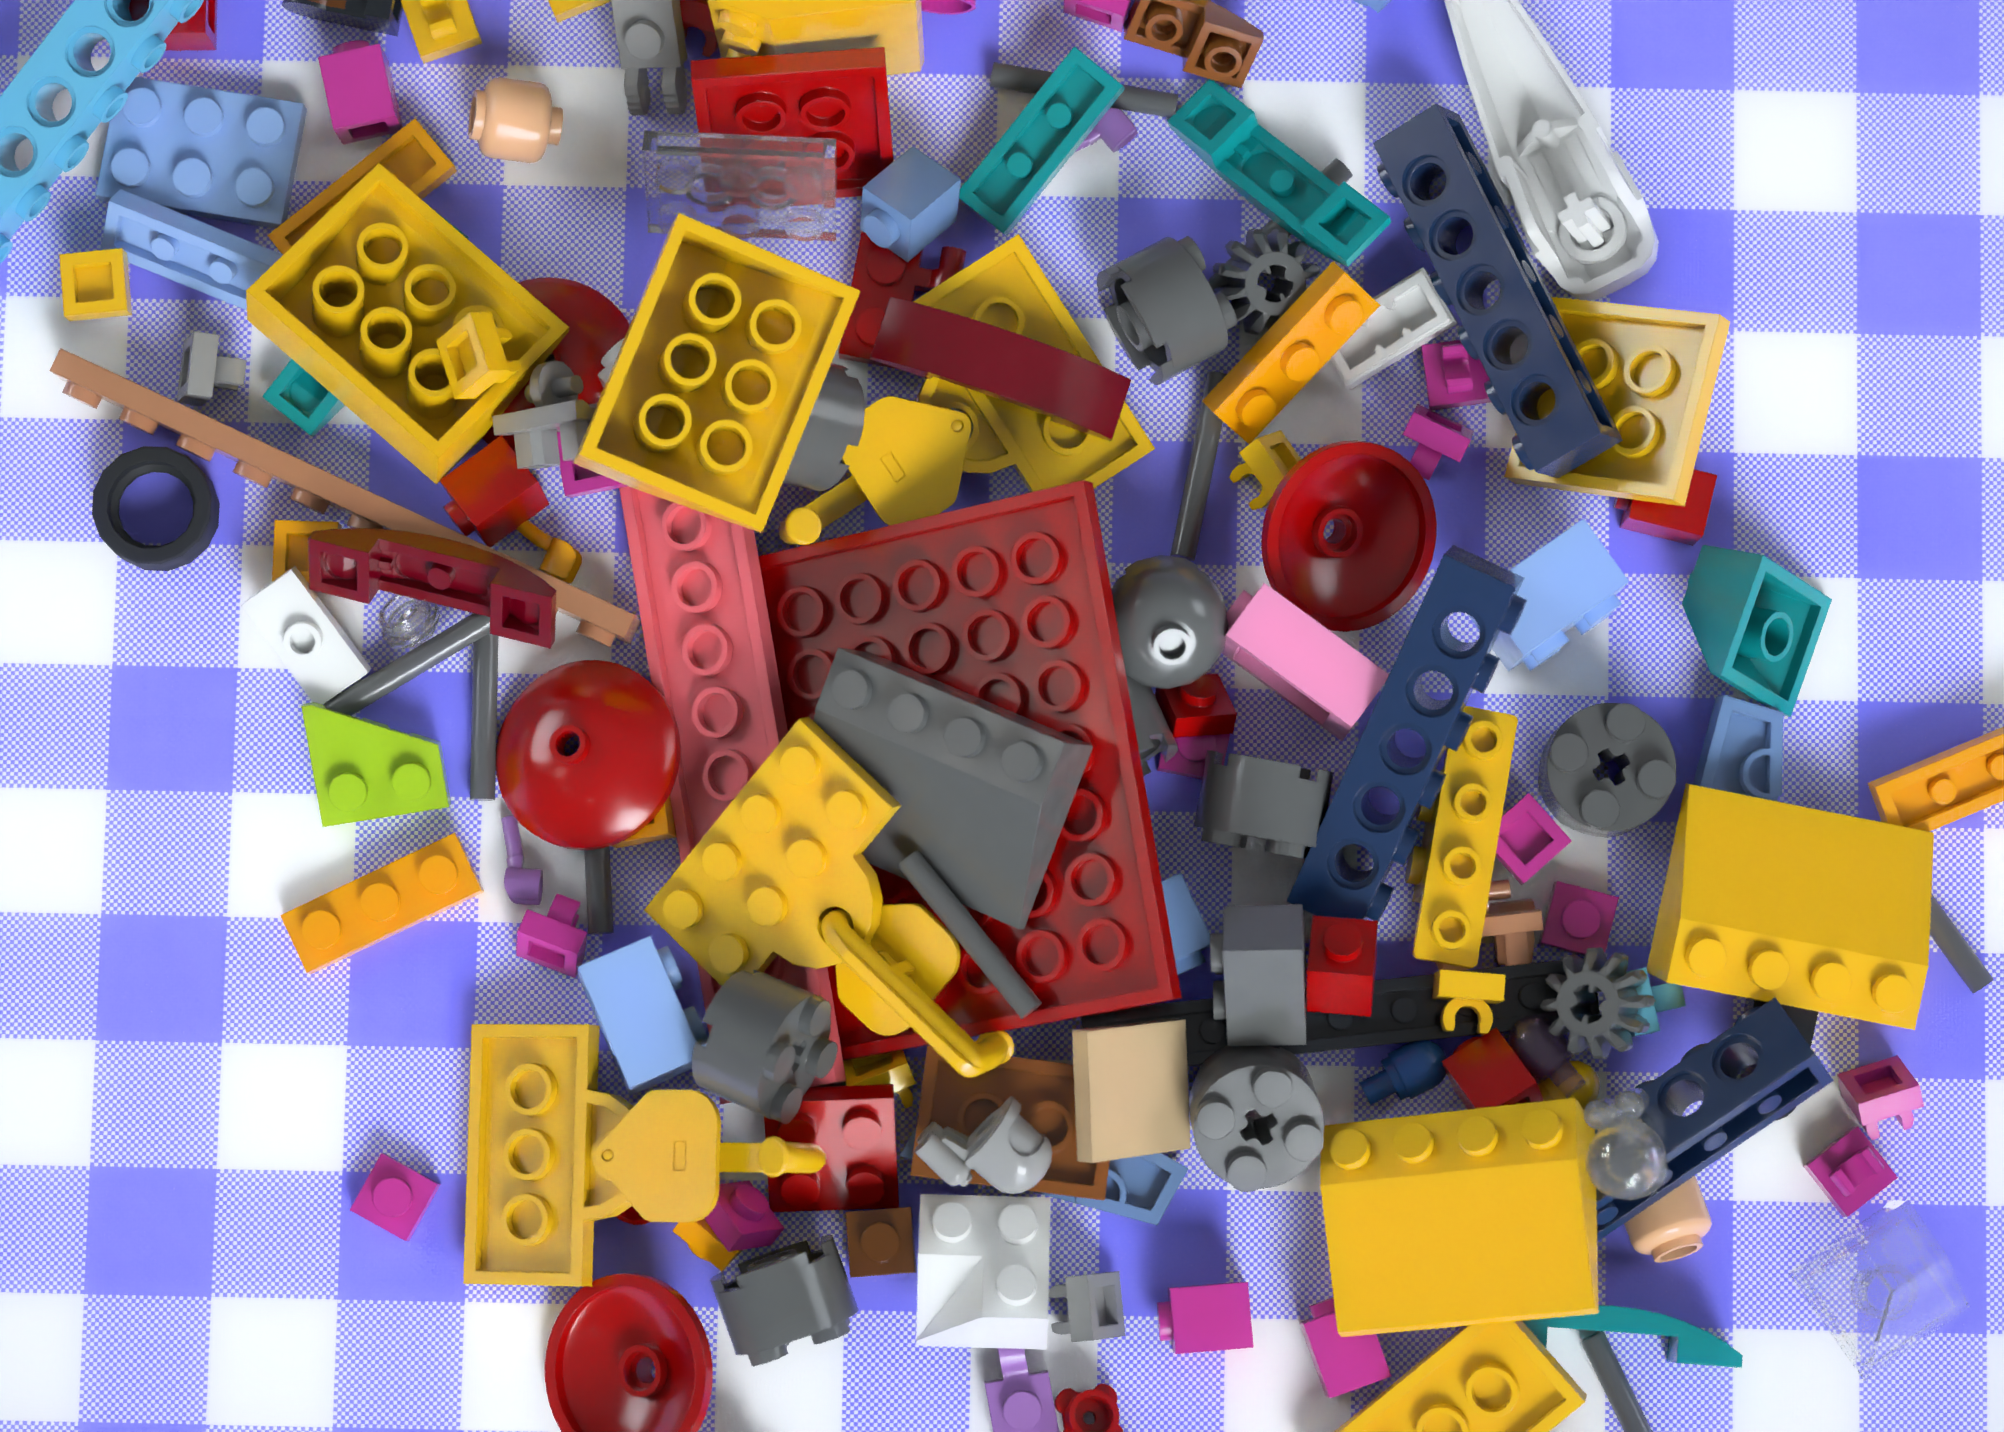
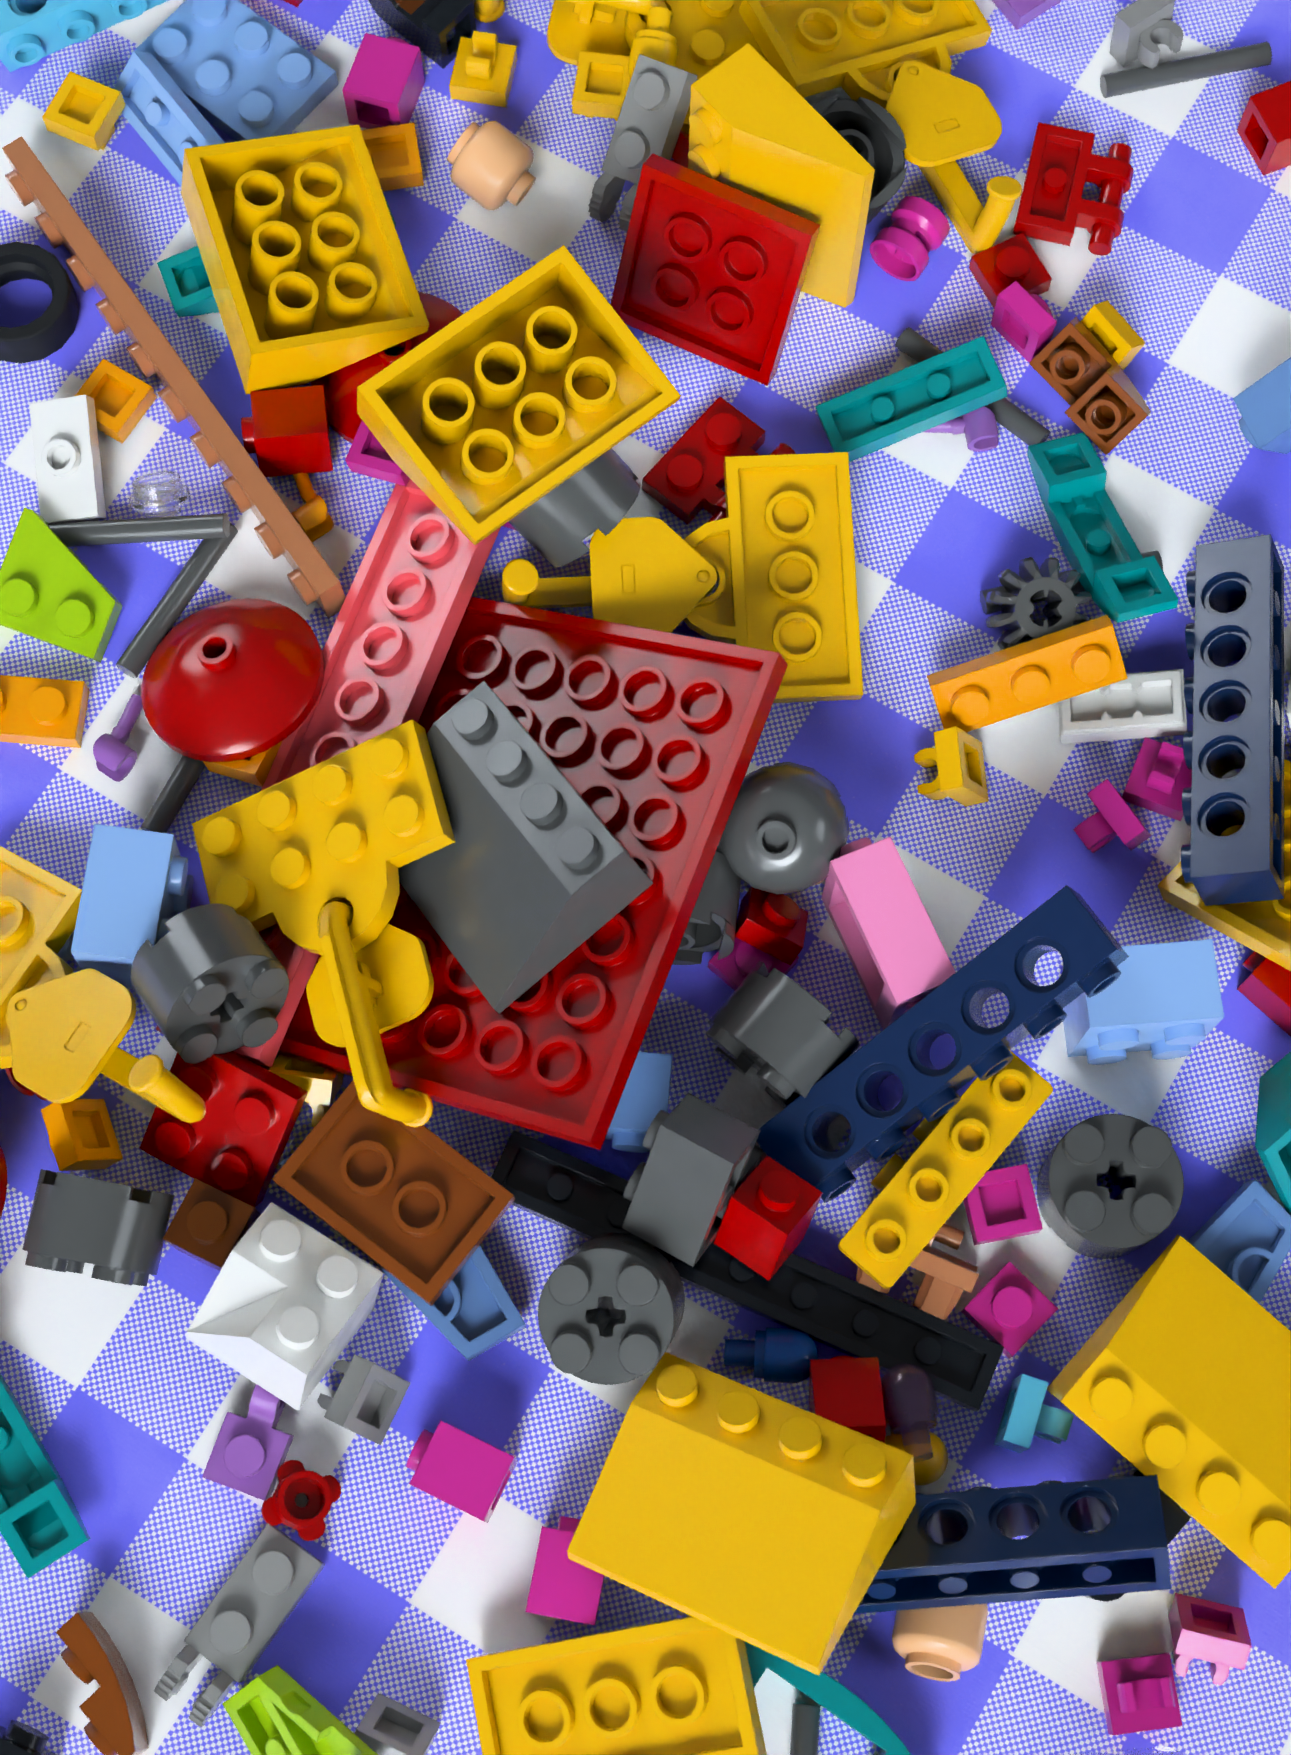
camera: 30 degrees right, 10 degrees down
(204, 370) = (127, 220): light grey tile -> none
(435, 570) = (196, 455): dark red slope -> none
(475, 355) = (333, 289): yellow tile -> none
(553, 938) = (104, 804): dark pink tile -> none
(555, 395) = (345, 375): light grey hips -> none
(742, 184) = (661, 298): clear plate -> none
(743, 1217) = (107, 1132): dark pink plate -> none
(909, 204) = (772, 388): medium blue brick -> none
(969, 934) = (448, 991): dark grey bar -> none
(1001, 366) = (773, 546): dark red slope -> none
(1001, 1150) = (361, 1202): light grey piece -> none
(1131, 1090) = (511, 1216): tan tile -> none
(1166, 308) = (939, 582): dark grey brick -> none
(1198, 476) = (887, 742): dark grey bar -> none
(1378, 539) = (1026, 856): red dish -> none
(1470, 991) = (872, 1307): yellow tile -> none
(1577, 994) = (1000, 1401): dark grey gear -> none
(1625, 1154) = (929, 1535): clear piece -> none

